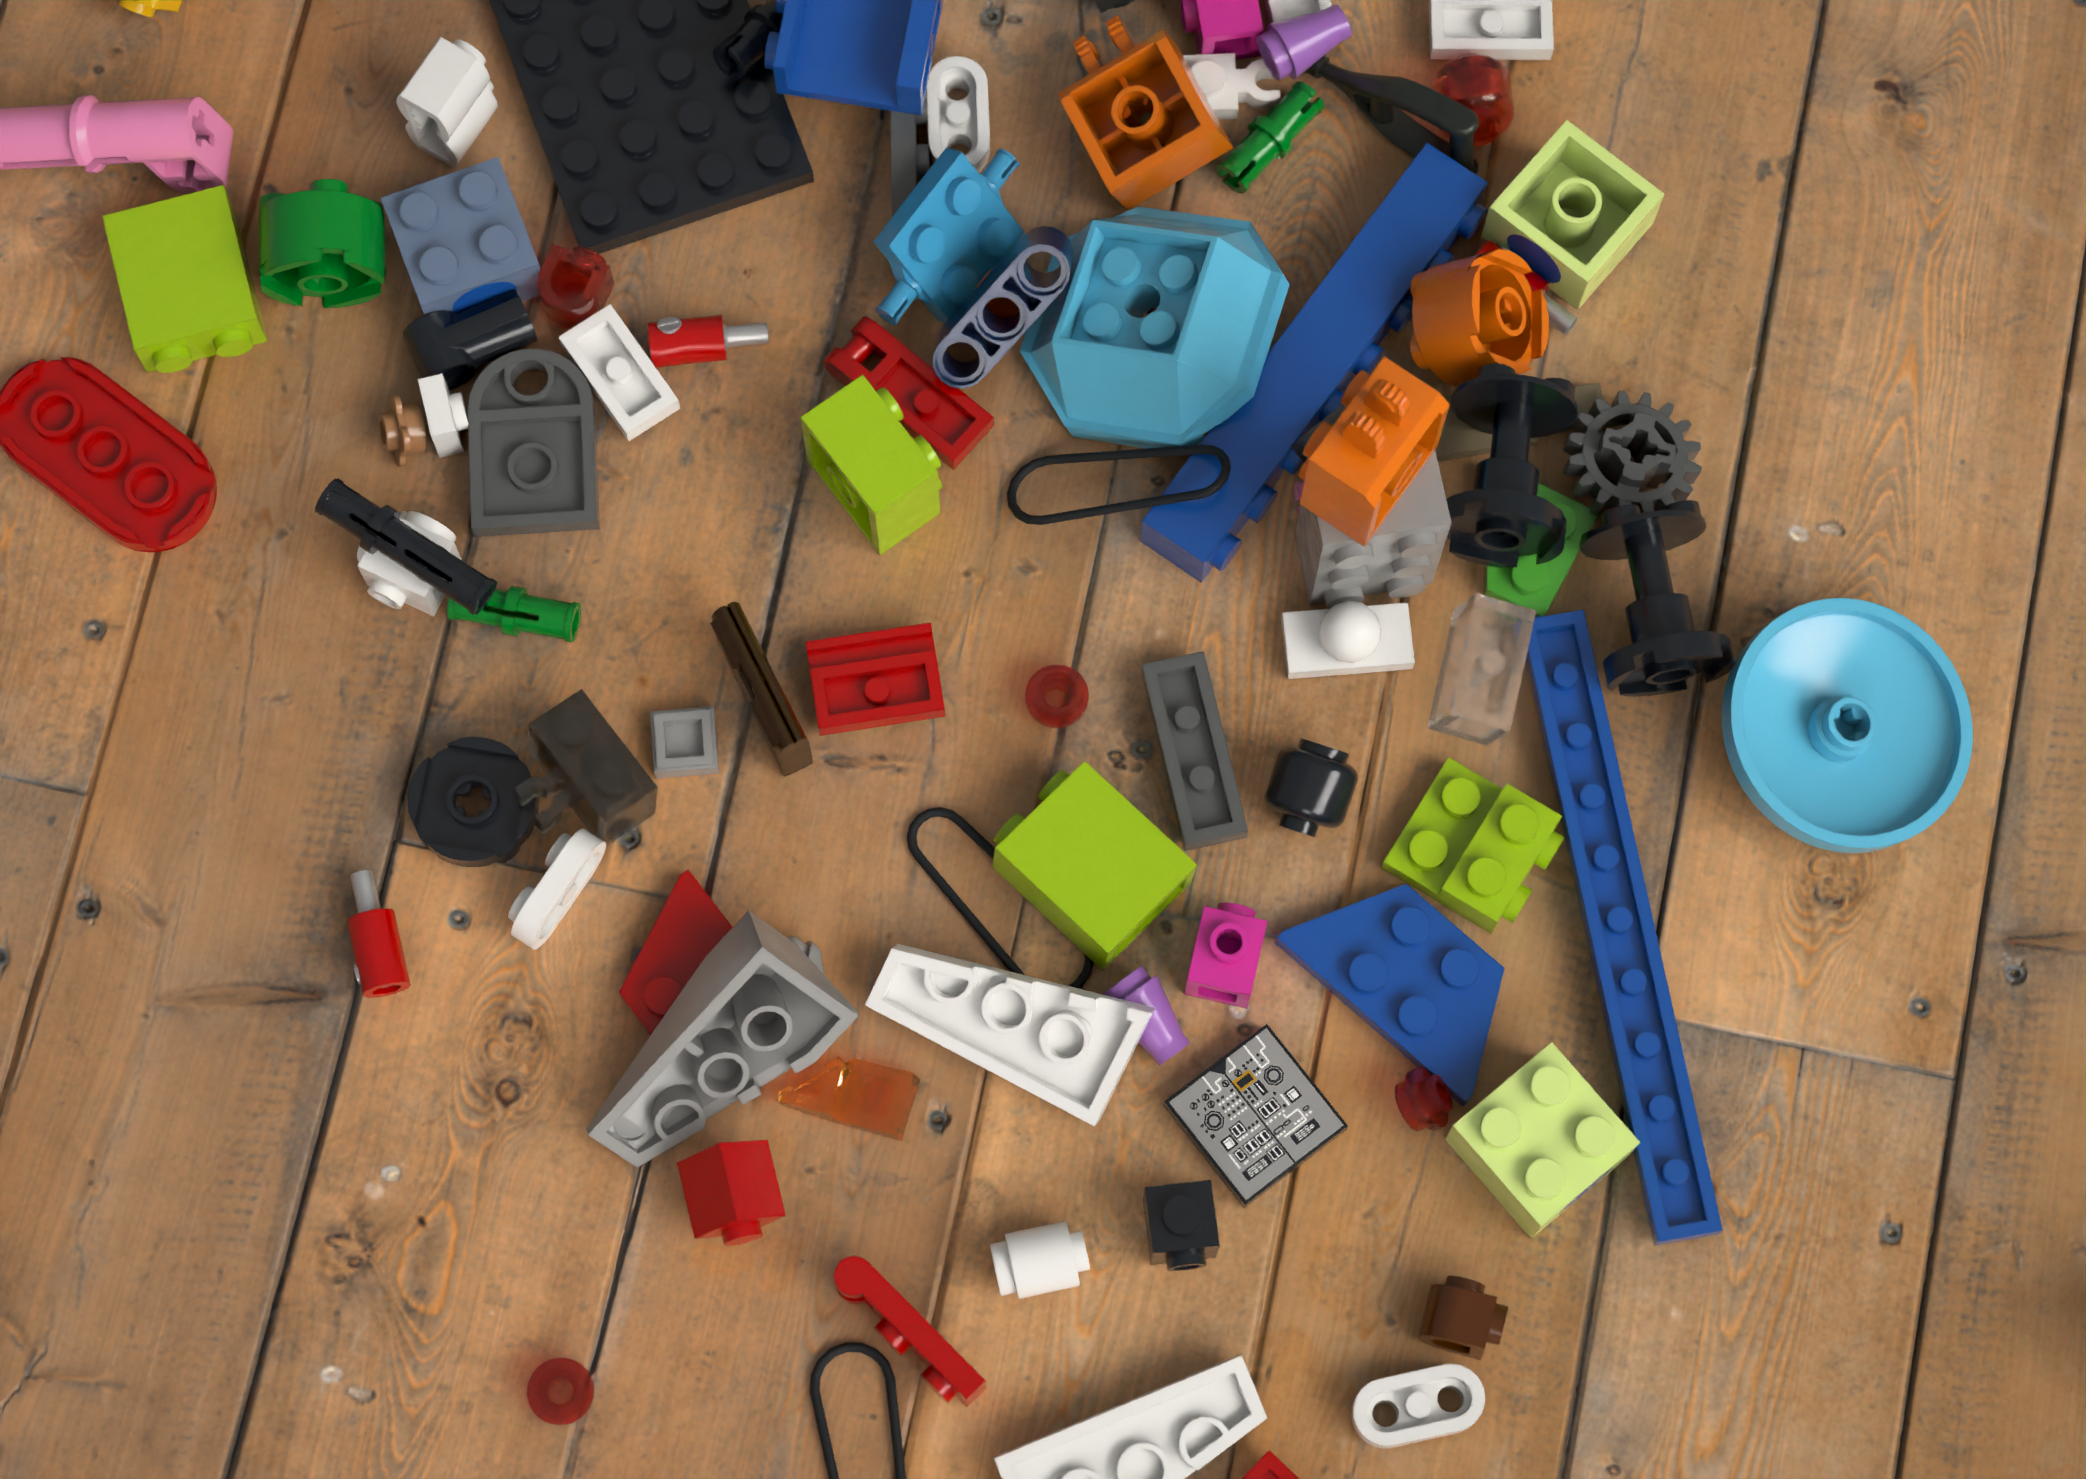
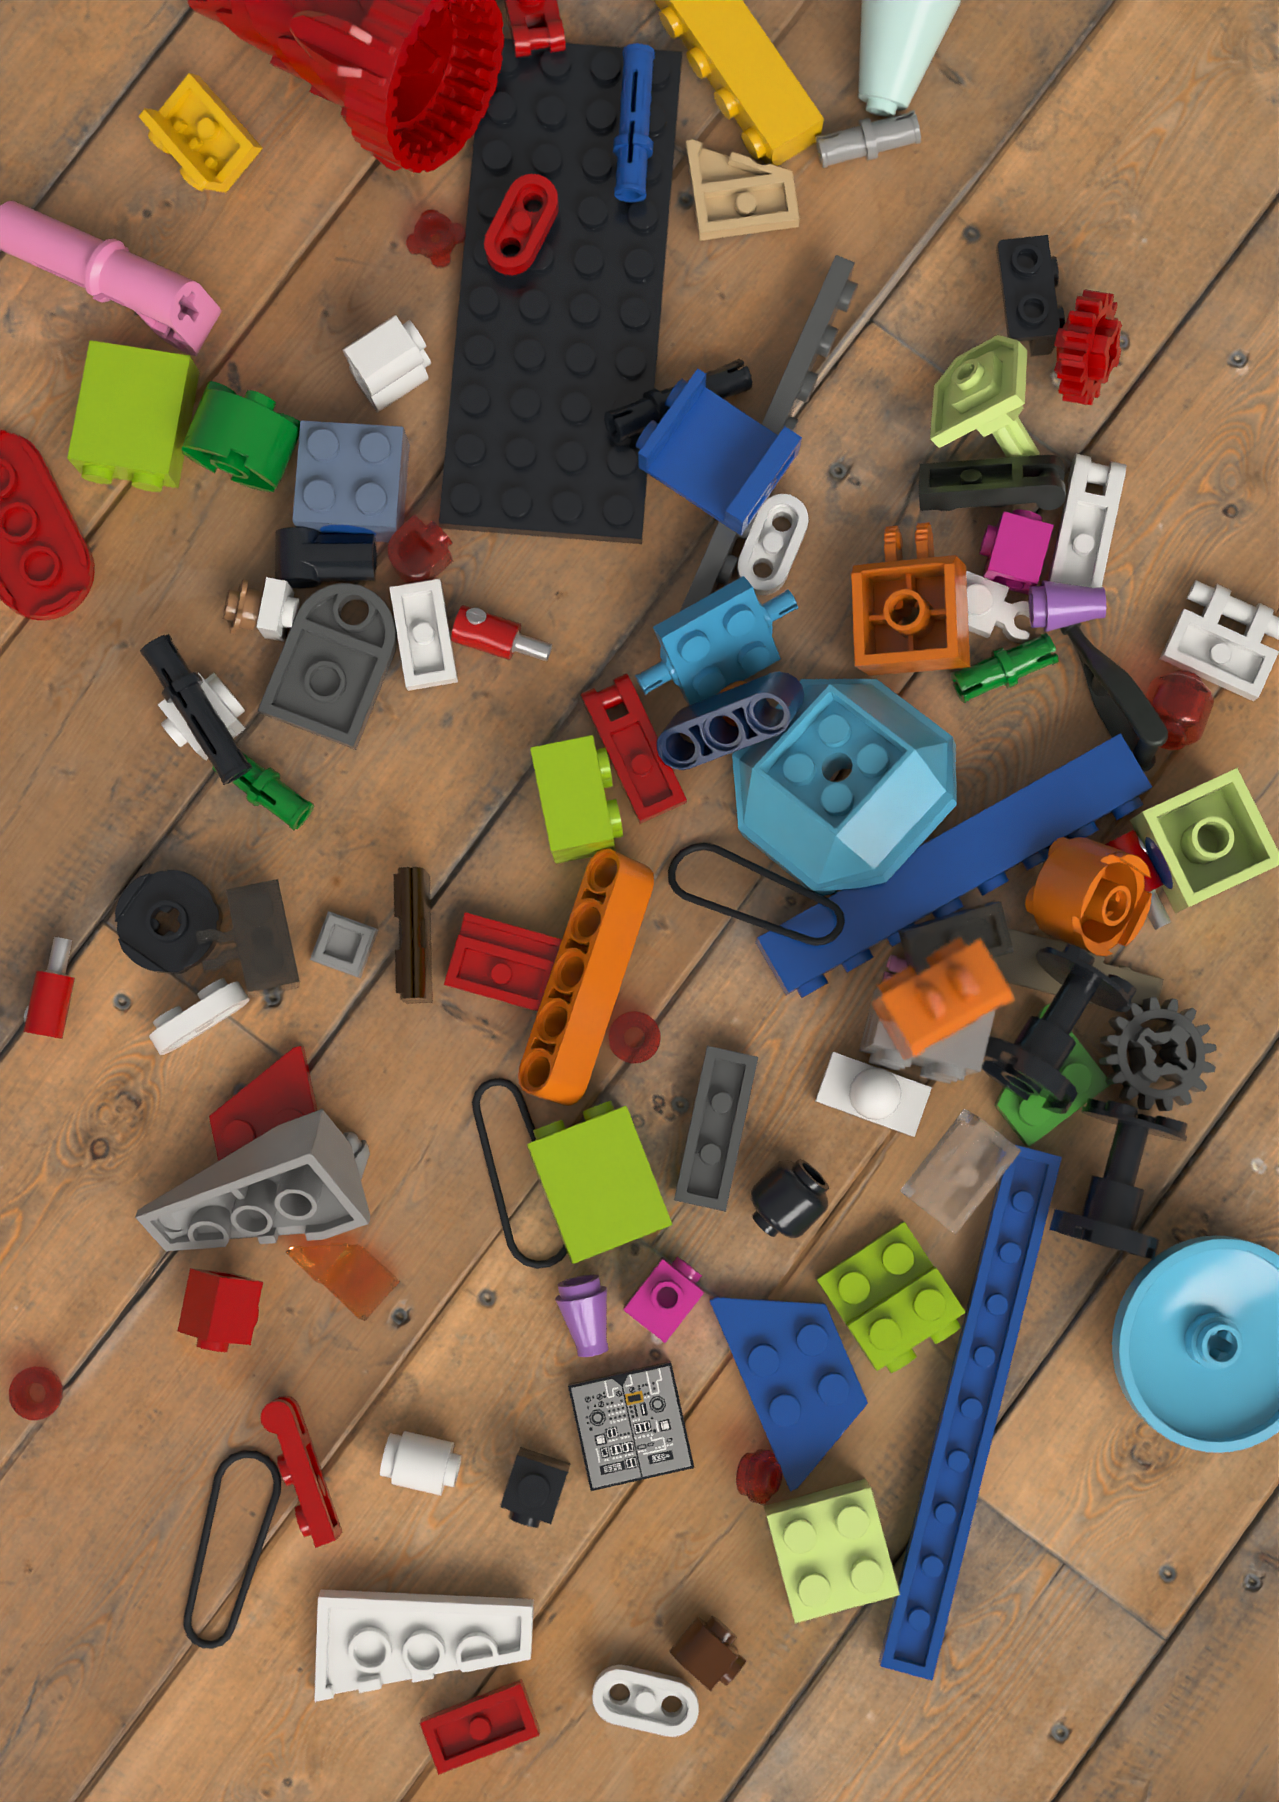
camera: 30 degrees right, 10 degrees up
(974, 651) = (586, 978): none -> orange beam
(1025, 1029) = (489, 1286): white wing -> none

